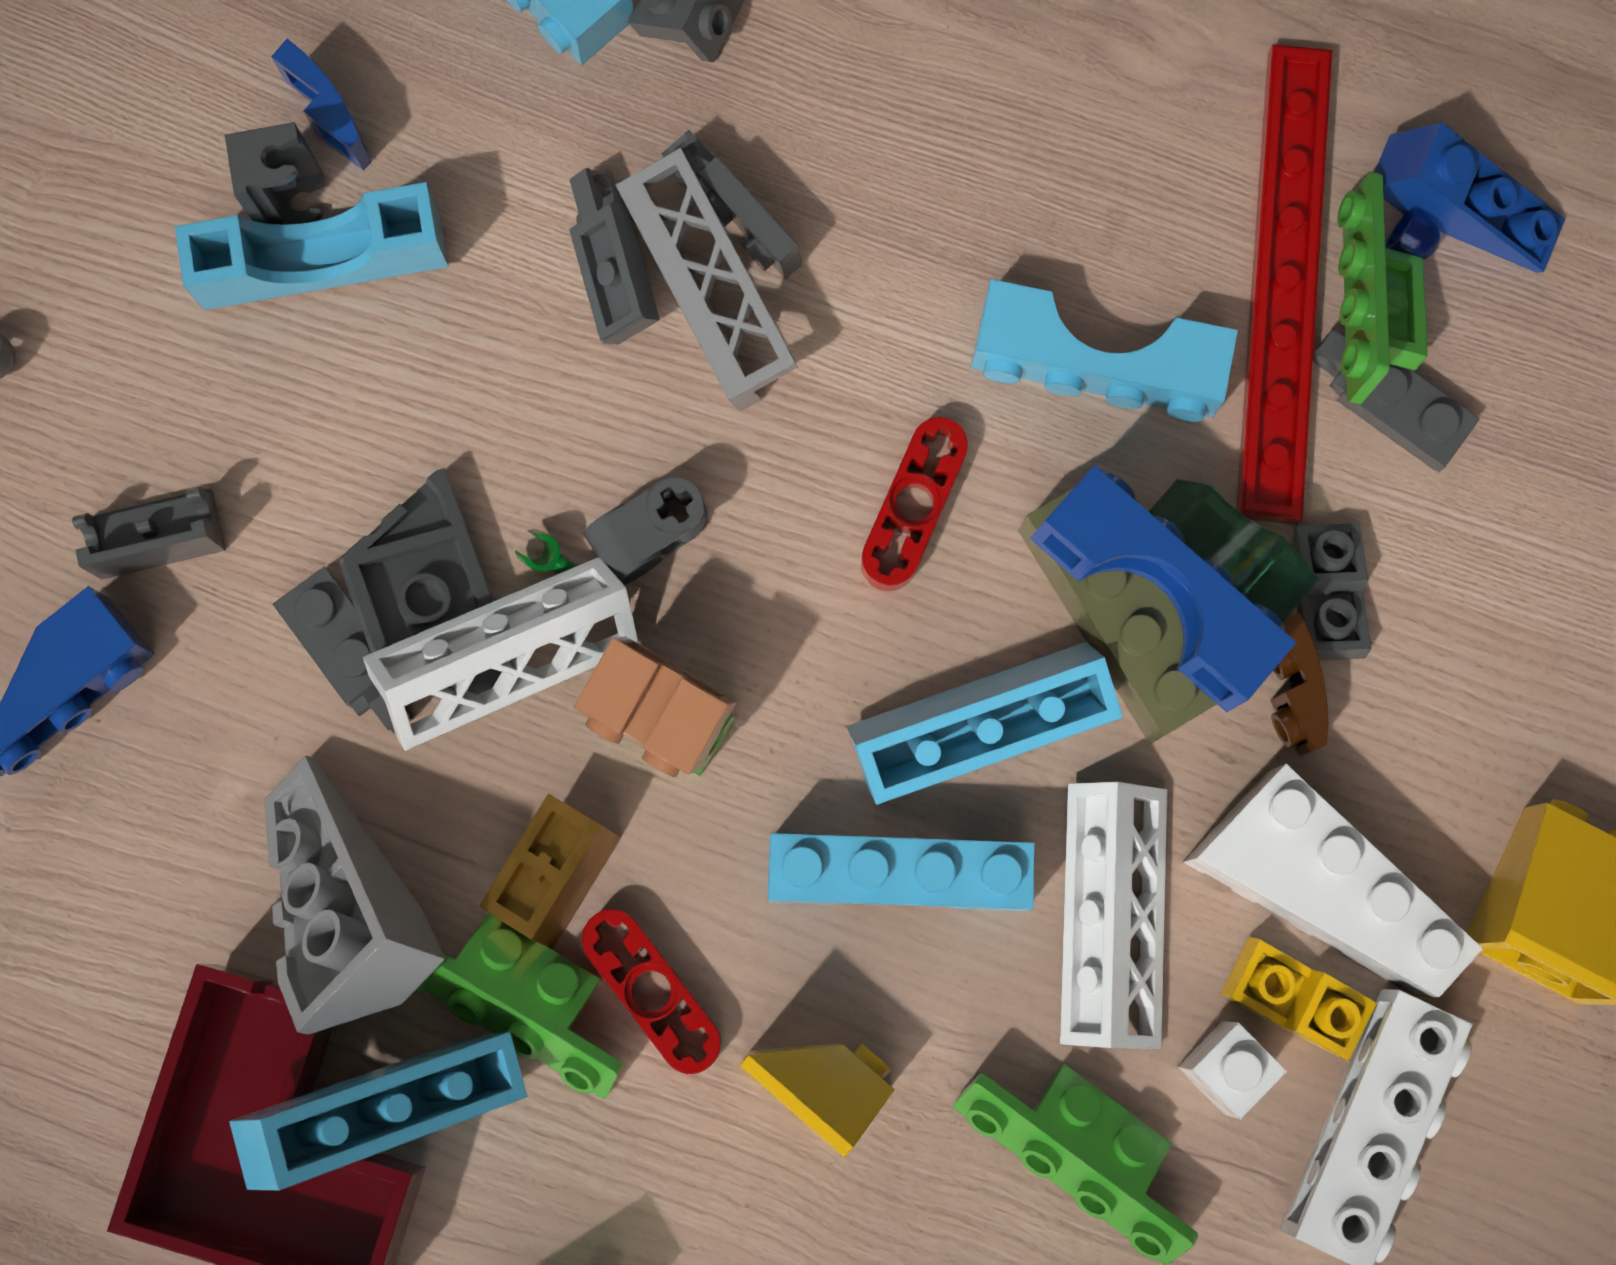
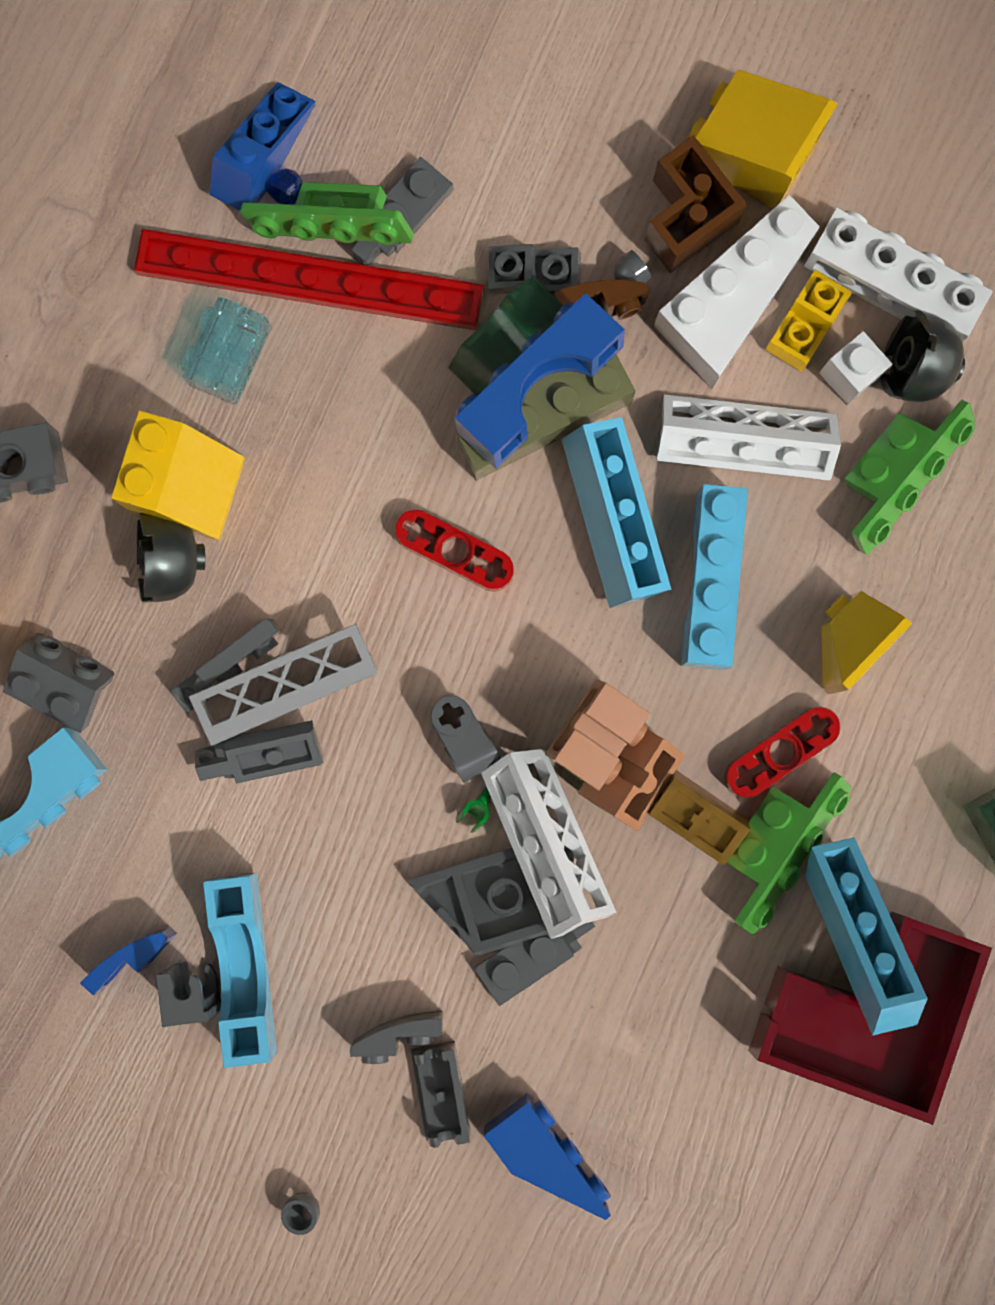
camera: 85 degrees left, 5 degrees up
(223, 452) = (383, 1040): none -> dark grey slope
(346, 915) = (729, 956): light grey wedge -> none
(597, 774) = (640, 781): none -> nougat brick
(873, 109) = (166, 558): none -> pearl dark grey cylinder
(984, 111) = (178, 475): none -> yellow slope
(1028, 341) = (340, 463): medium azure arch -> none
(1171, 171) = (226, 350): none -> clear light blue brick
(1255, 1176) = (925, 358): none -> pearl dark grey cylinder
(1346, 728) = (631, 268): none -> dark grey hinge
(1447, 822) = (700, 200): none -> reddish brown brick

